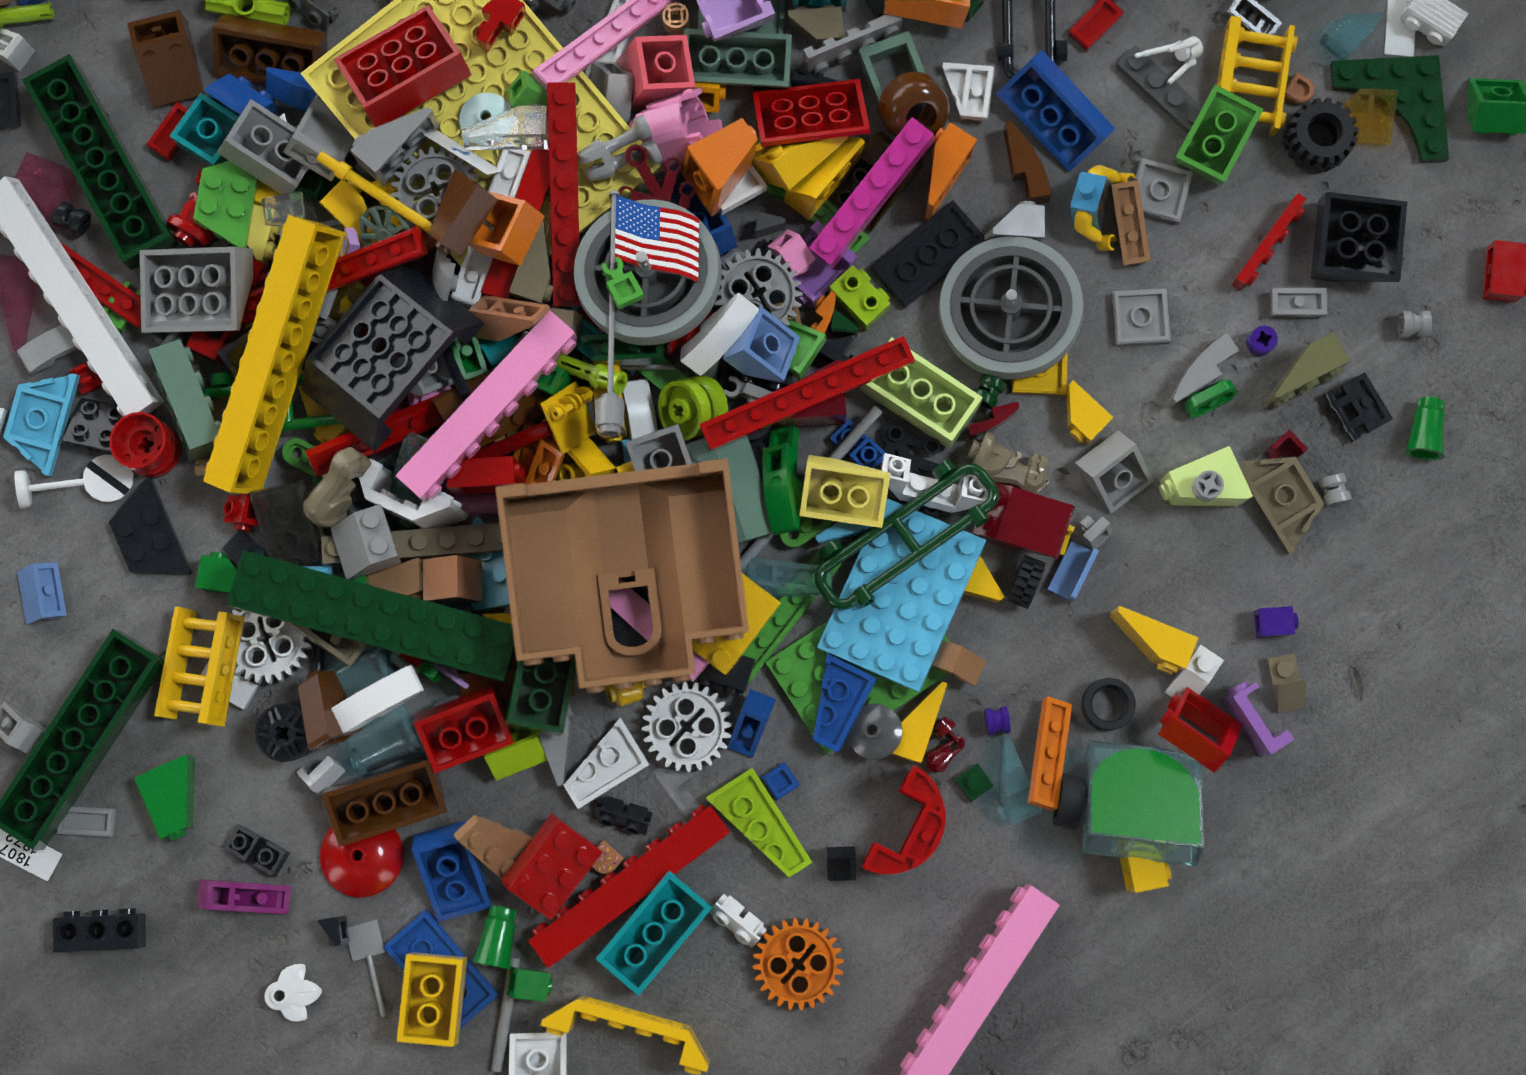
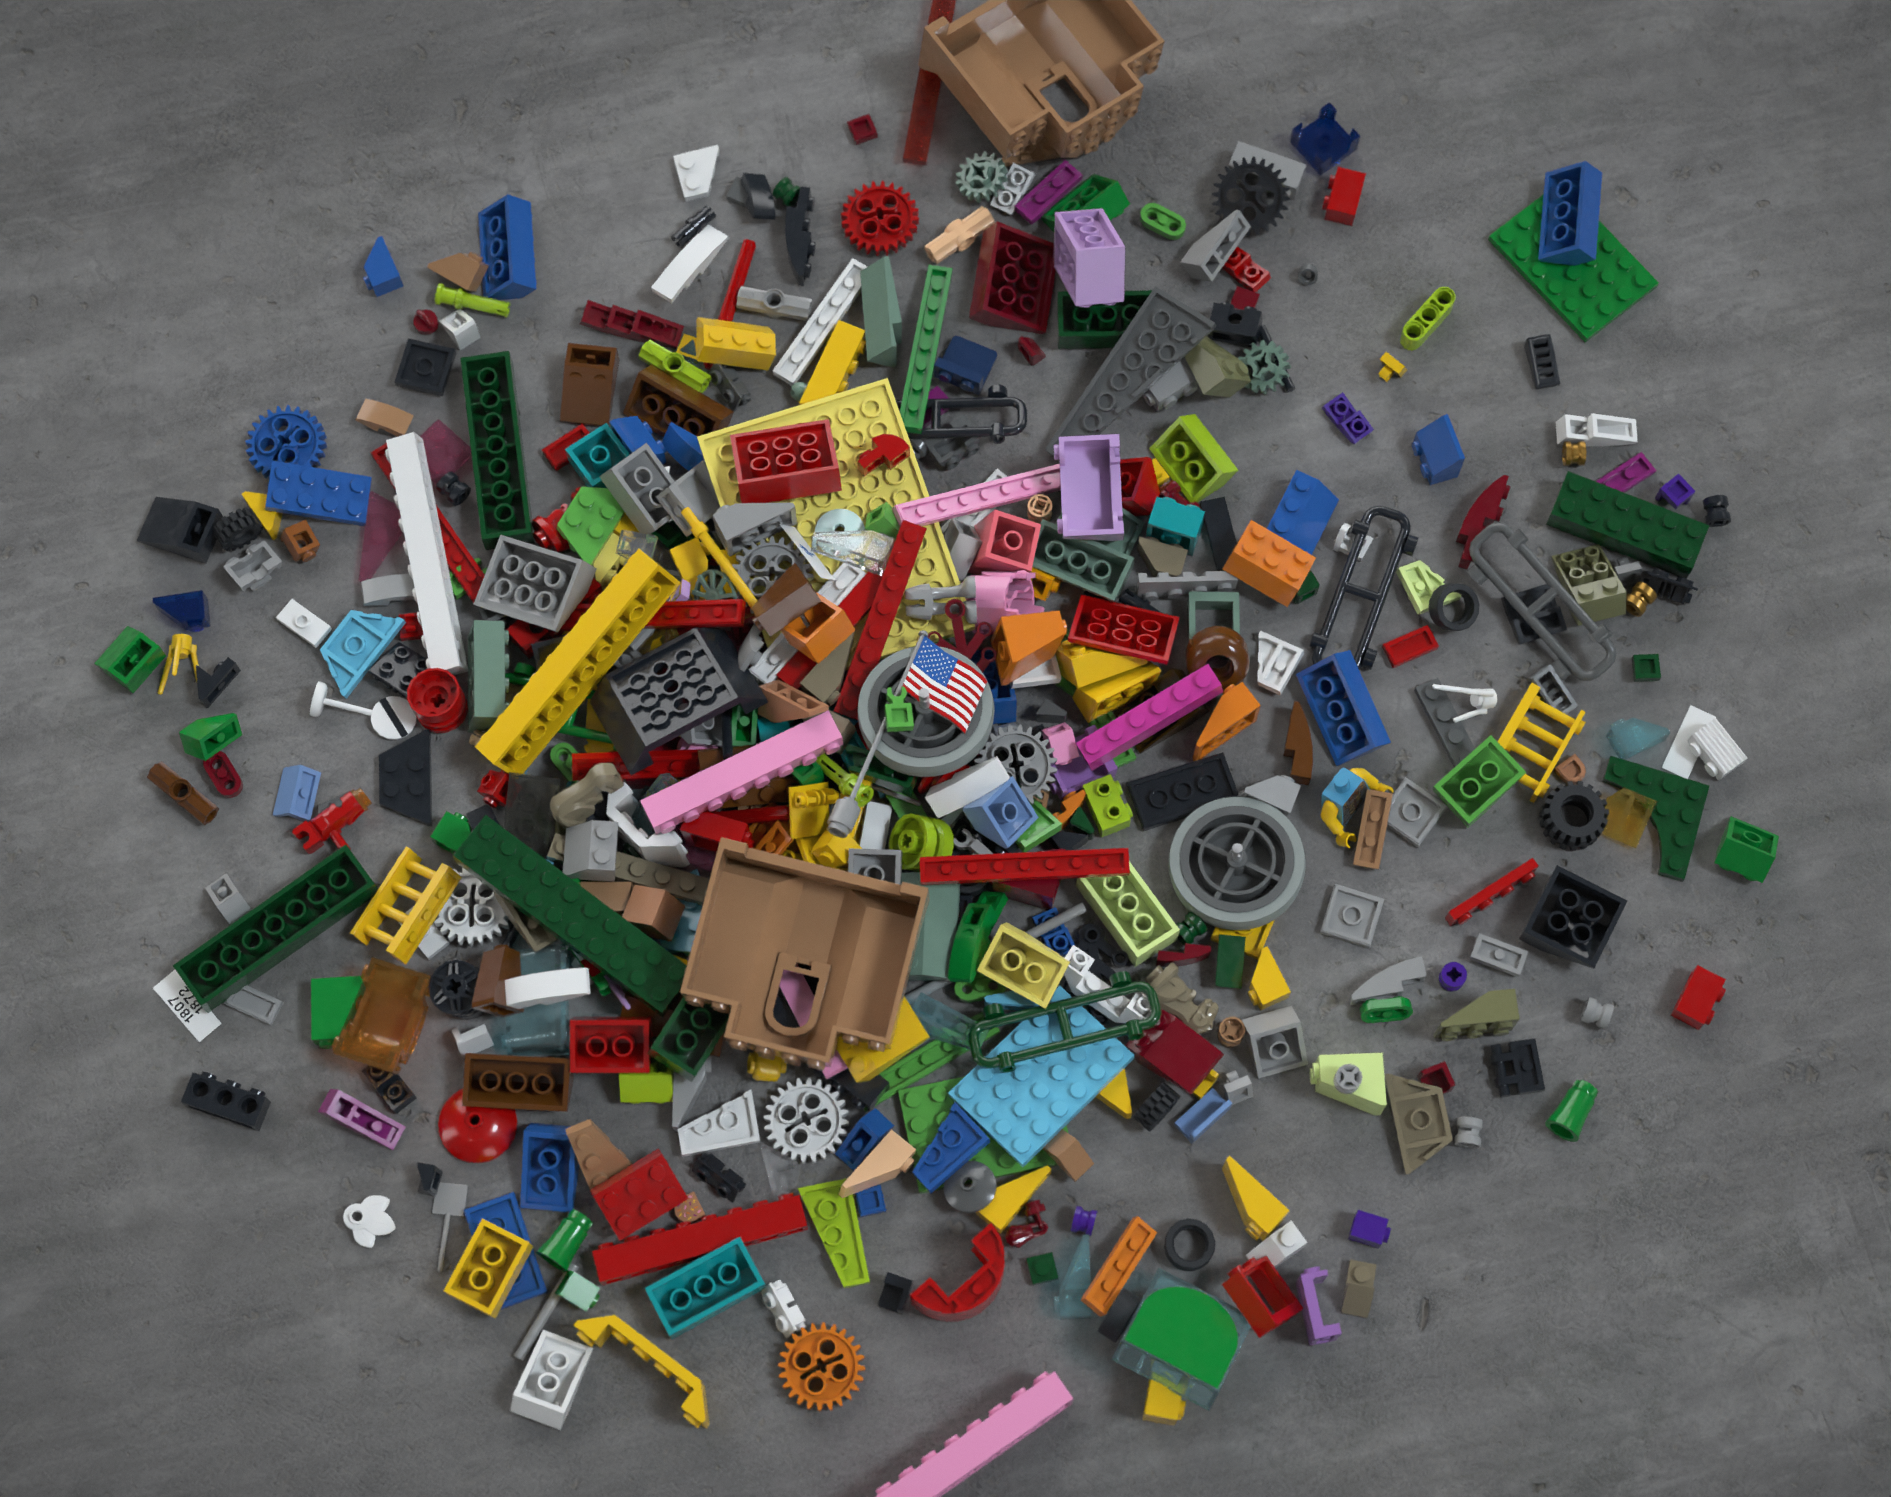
camera: 20 degrees right, 10 degrees down
(87, 606) = (331, 819): none -> red piece
(227, 790) = (386, 1017): none -> clear orange cylinder
(610, 451) = (833, 850): none -> yellow slope
(779, 742) = (882, 1164): none -> light nougat slope
(1040, 408) = (1230, 961): none -> dark green slope
(1072, 474) = (1231, 1027): none -> medium nougat wheel

